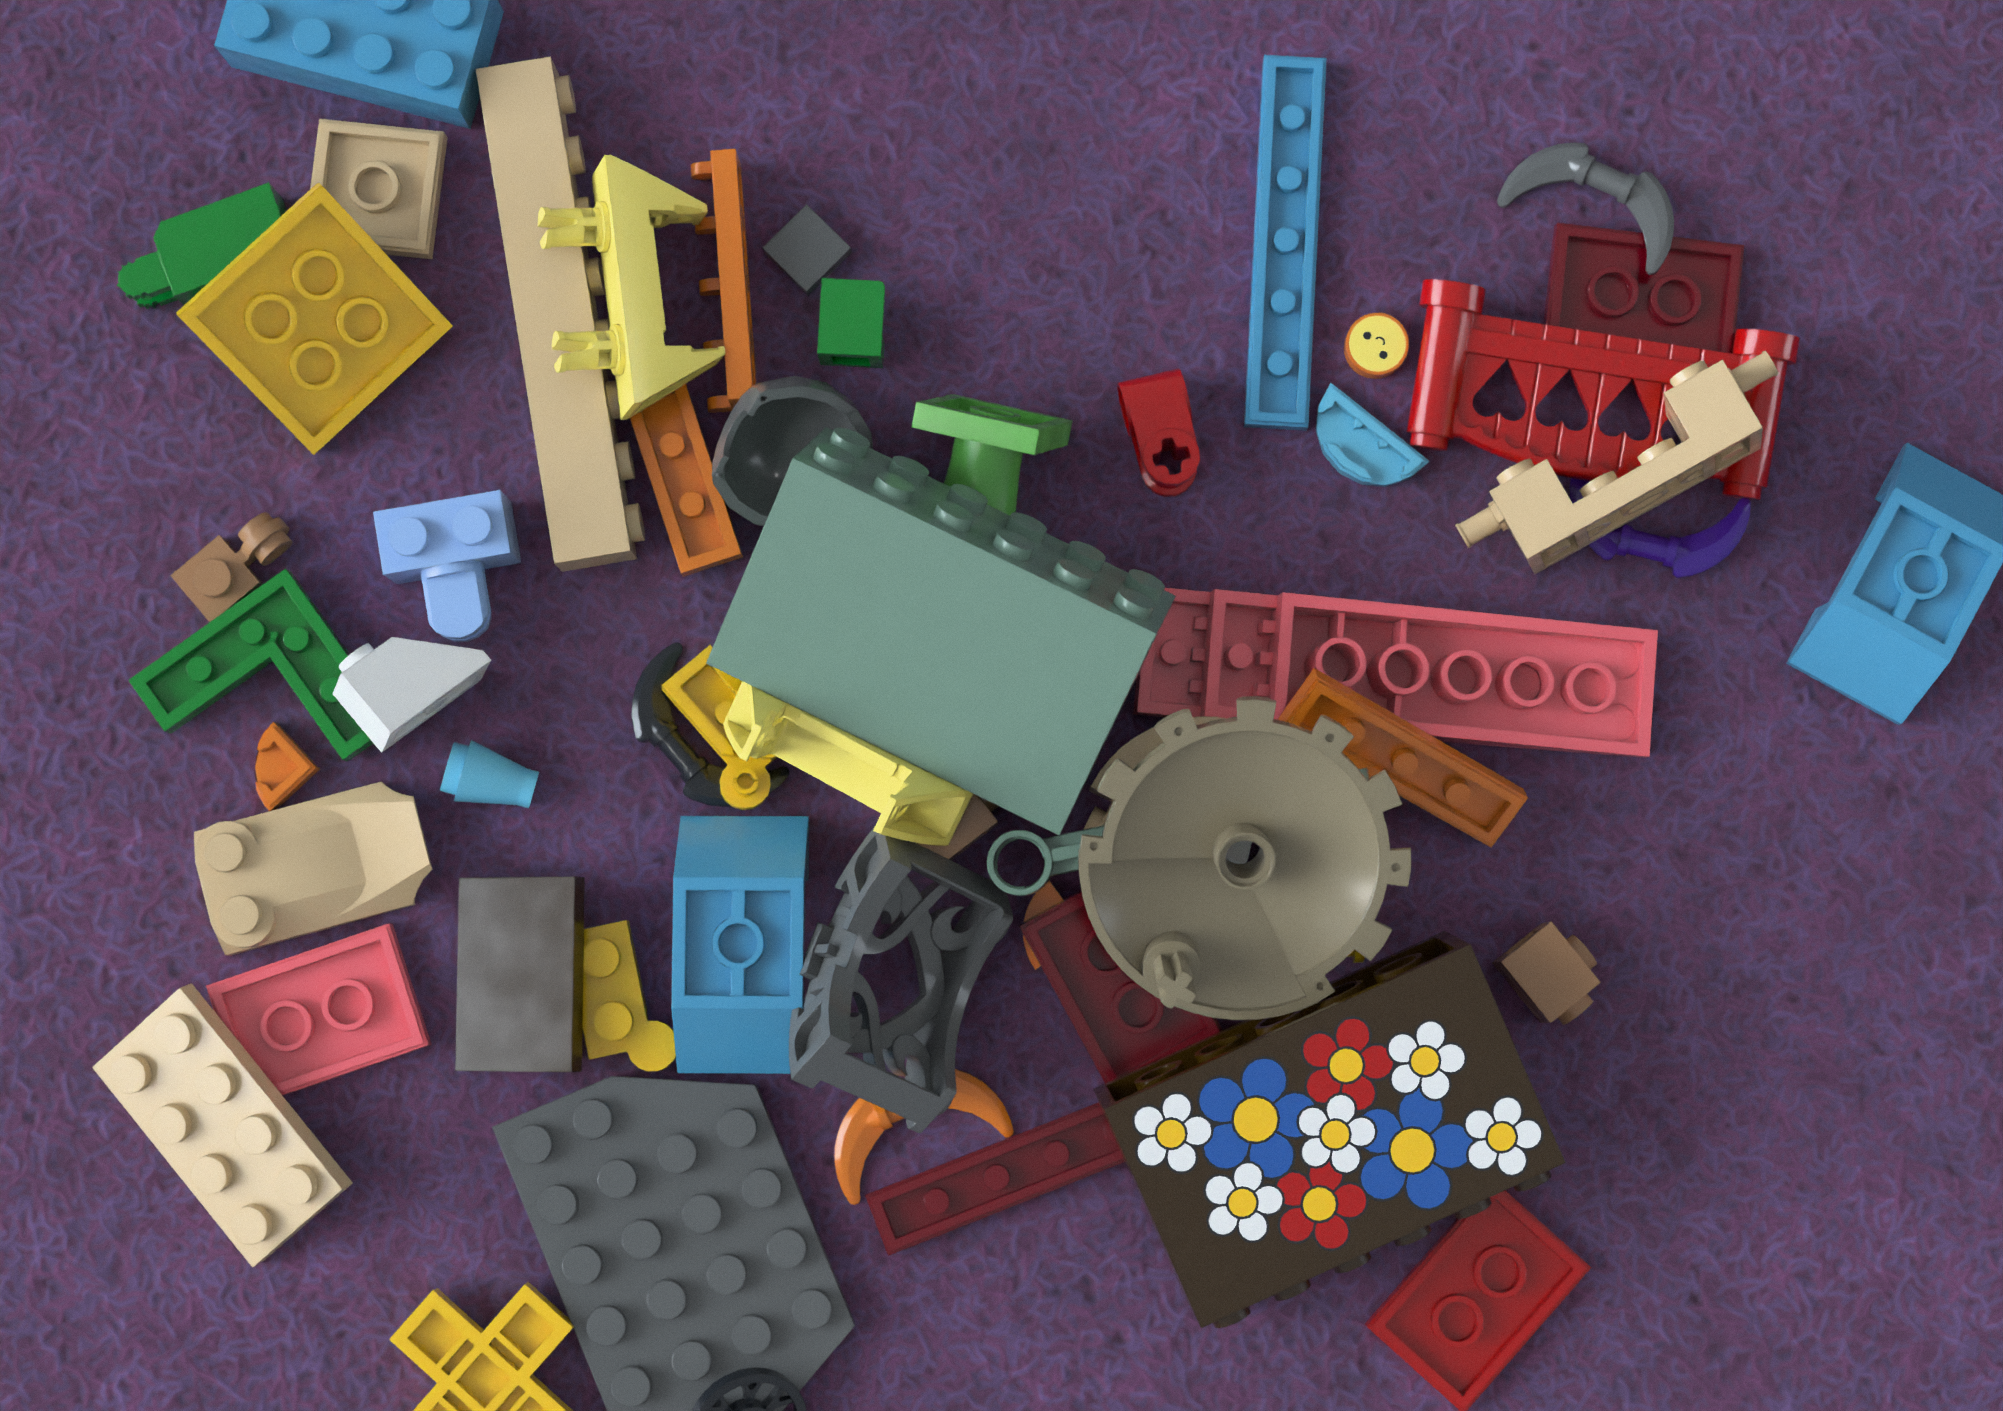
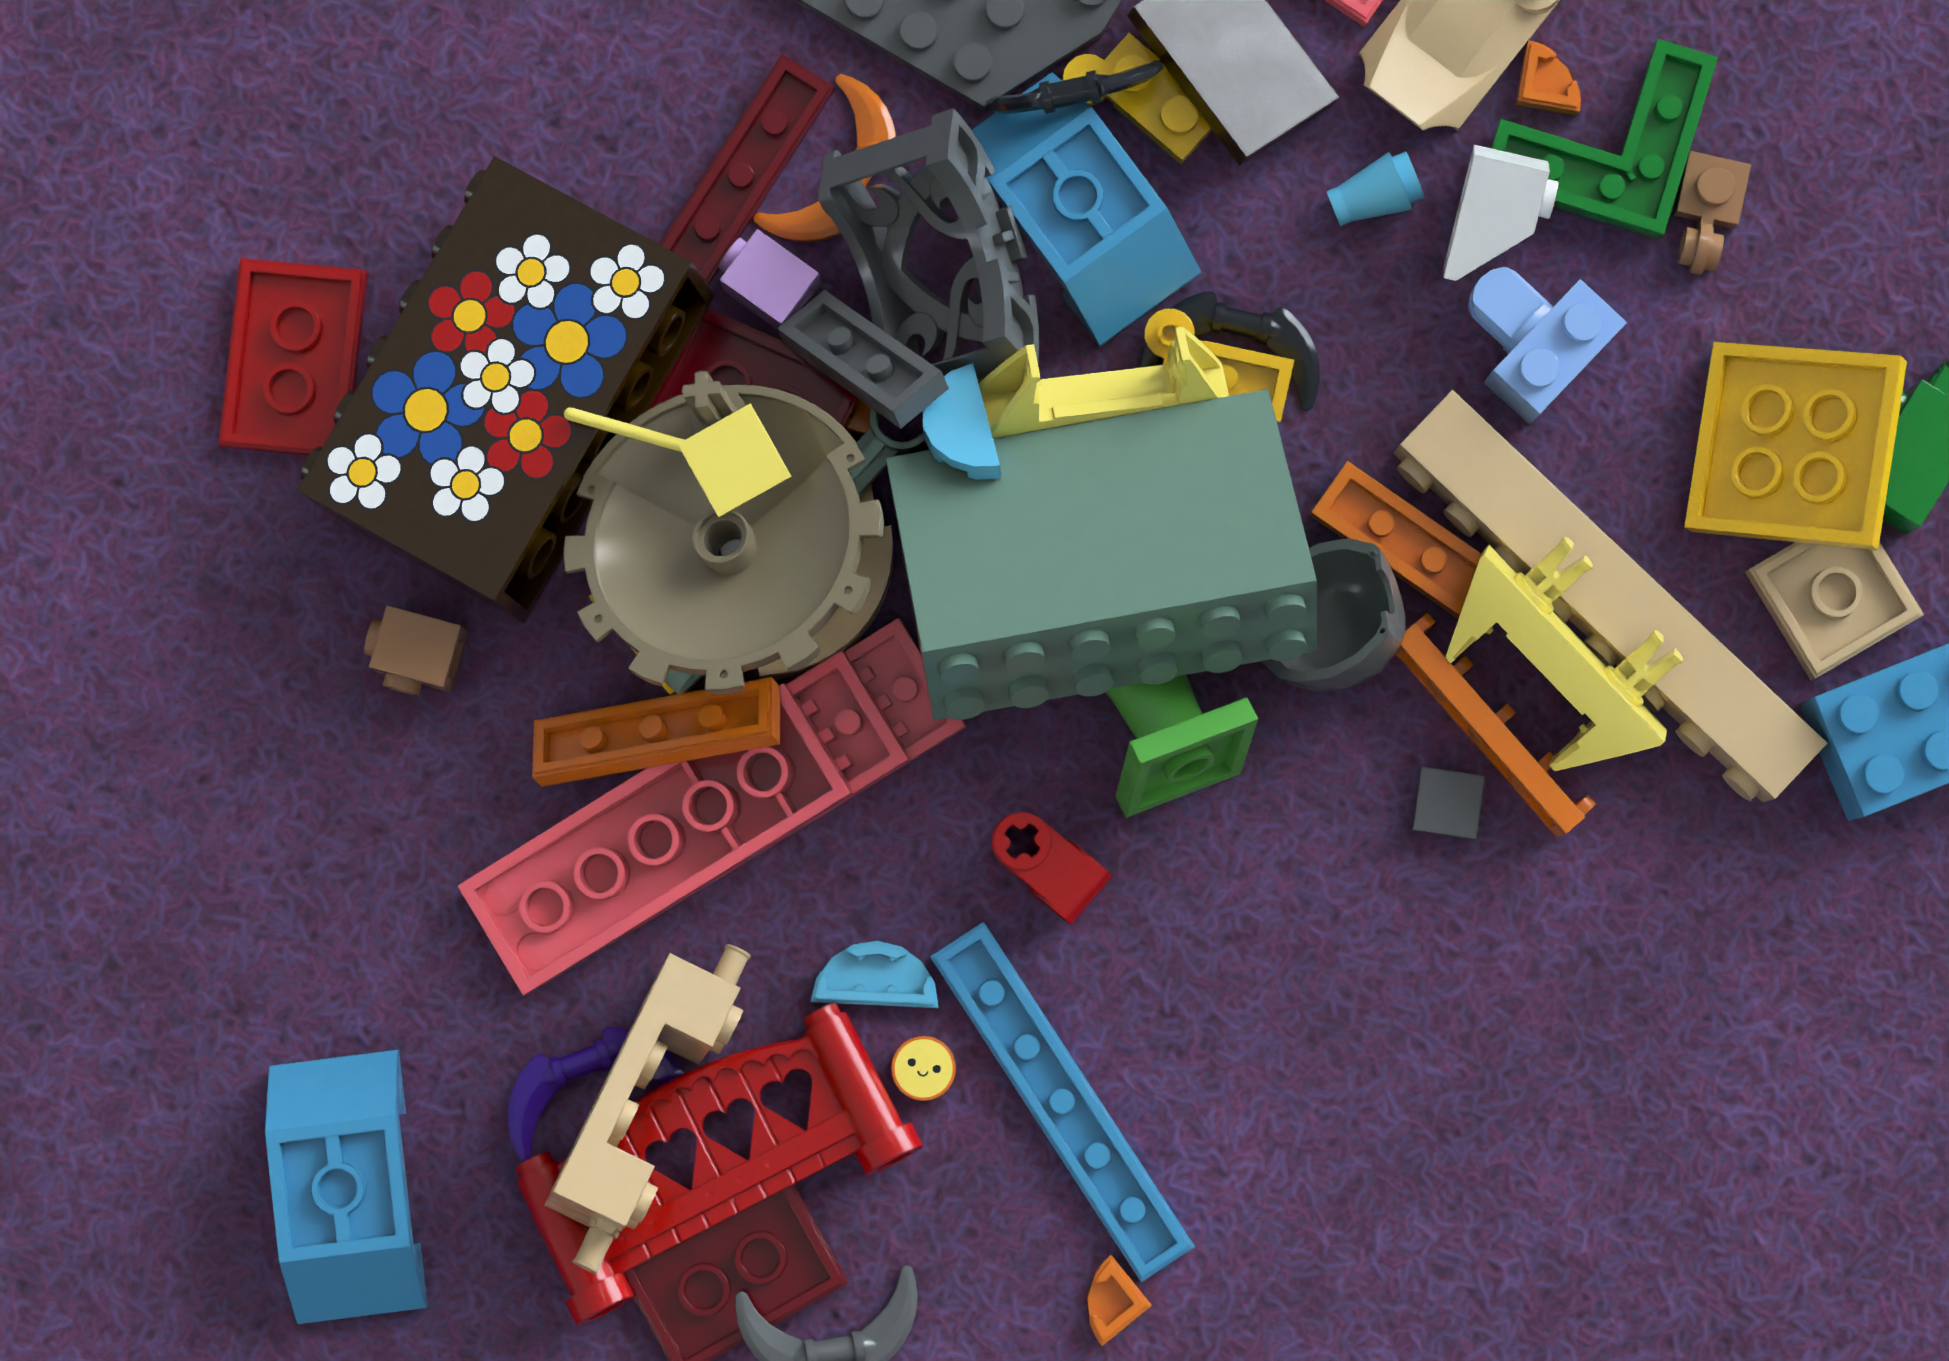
camera: 140 degrees right, 0 degrees up
(661, 1024) = (1074, 91): none -> black piece
(851, 323) = (1365, 764): green panel -> none
(981, 815) = (959, 427): none -> medium azure tile
(1016, 933) = (863, 359): none -> dark grey plate
(1040, 1070) = (767, 278): none -> lavender brick
(1193, 919) = (729, 458): none -> light yellow piece
(1357, 61) = (1113, 1300): none -> orange tile

